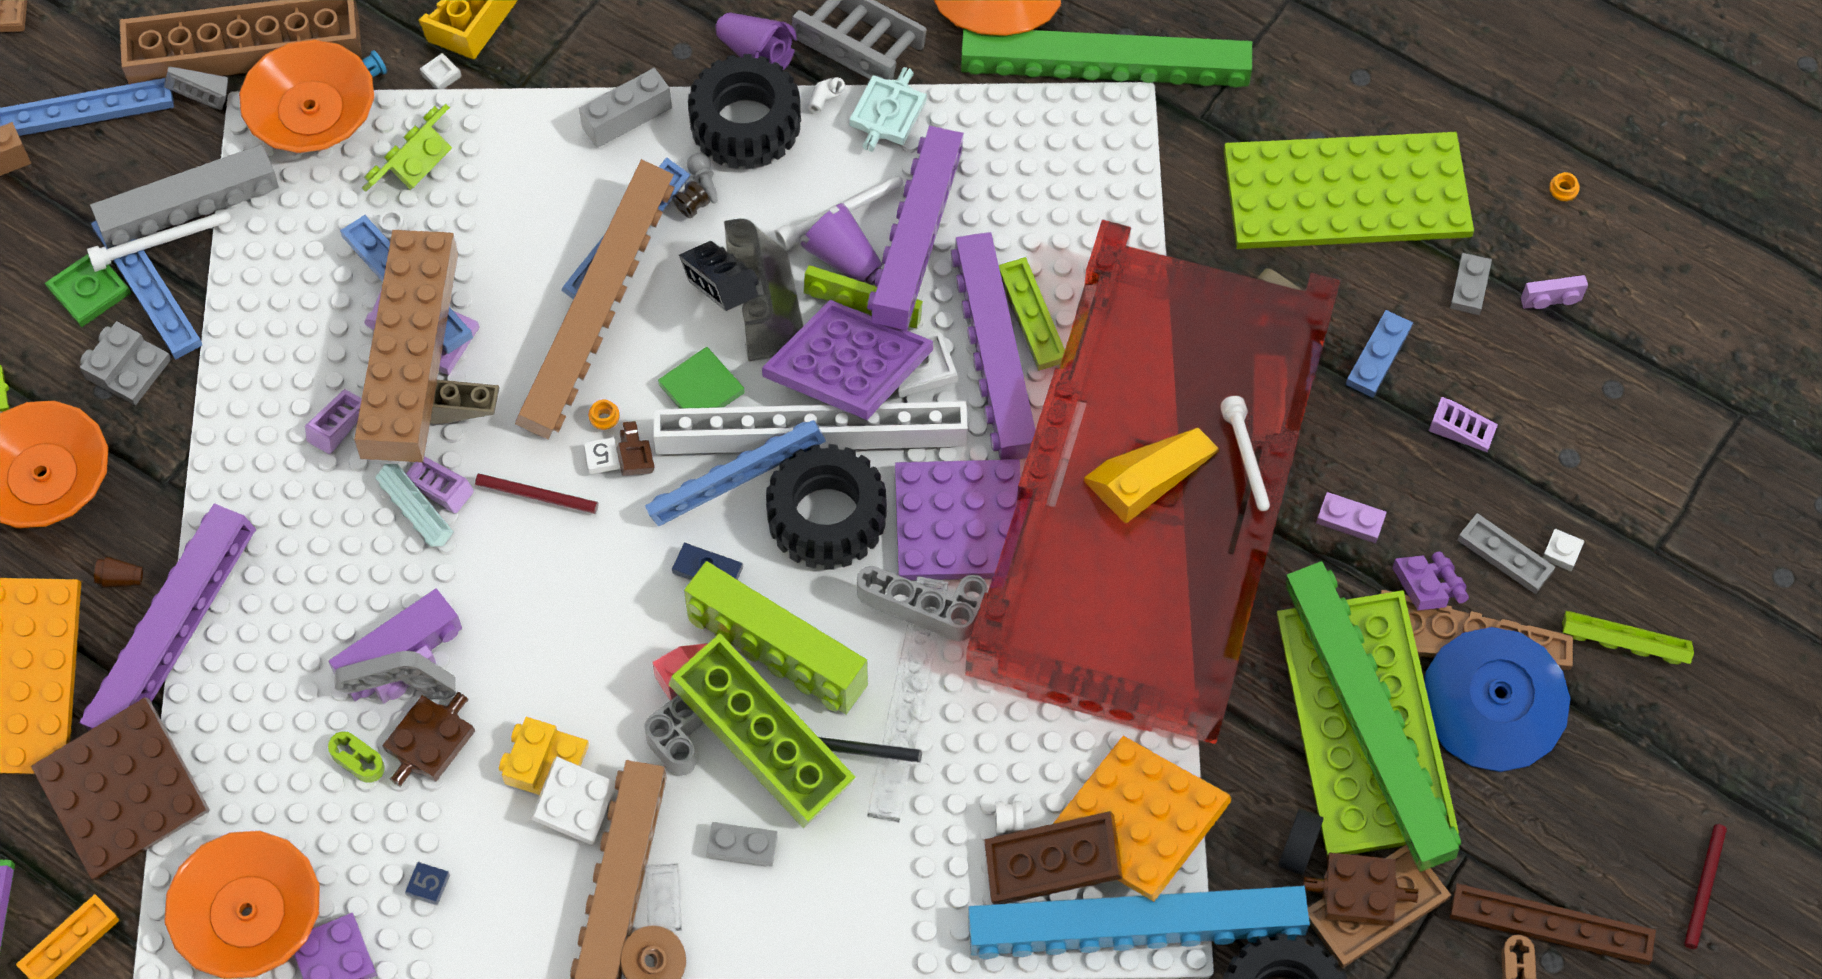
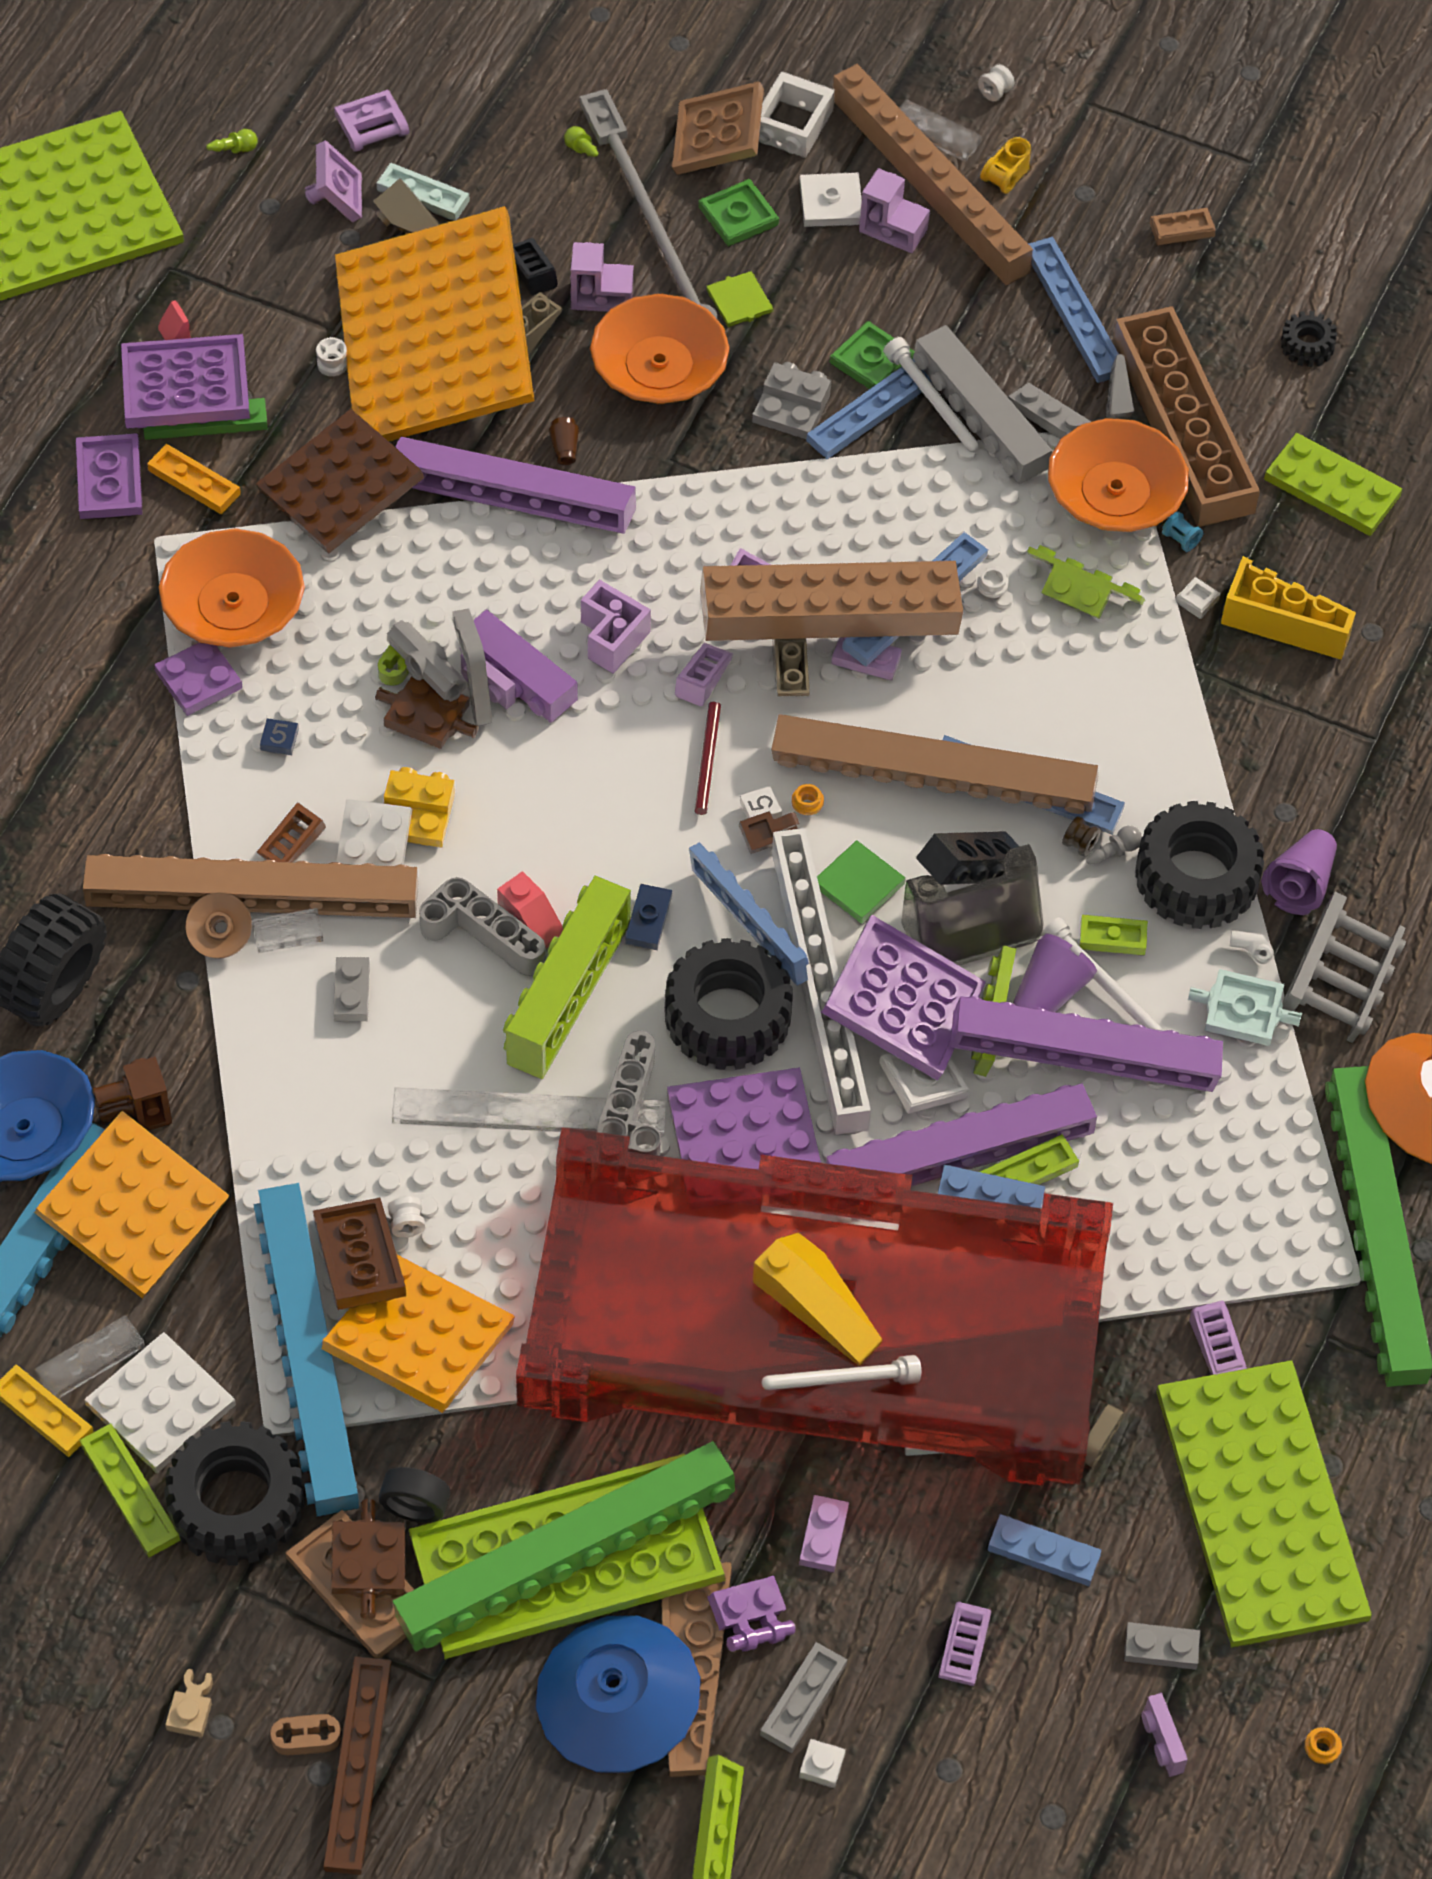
camera: 80 degrees right, 5 degrees down
(208, 144) = (1046, 410): none -> light grey plate
(368, 543) = (617, 625): none -> lavender brick
(378, 724) = (426, 660): none -> light grey piece
(414, 505) = (670, 657): light aqua piece -> none
(548, 856) = (308, 836): none -> dark orange slope
(625, 107) = (1181, 758): light grey brick -> none
(761, 730) = (458, 972): lime brick -> none
(797, 194) = (1113, 935): none -> lime plate
(873, 750) = (462, 1070): black bar -> none
(1052, 327) = (988, 1187): none -> medium blue plate
(1190, 202) = (1211, 1319): none -> lavender slope

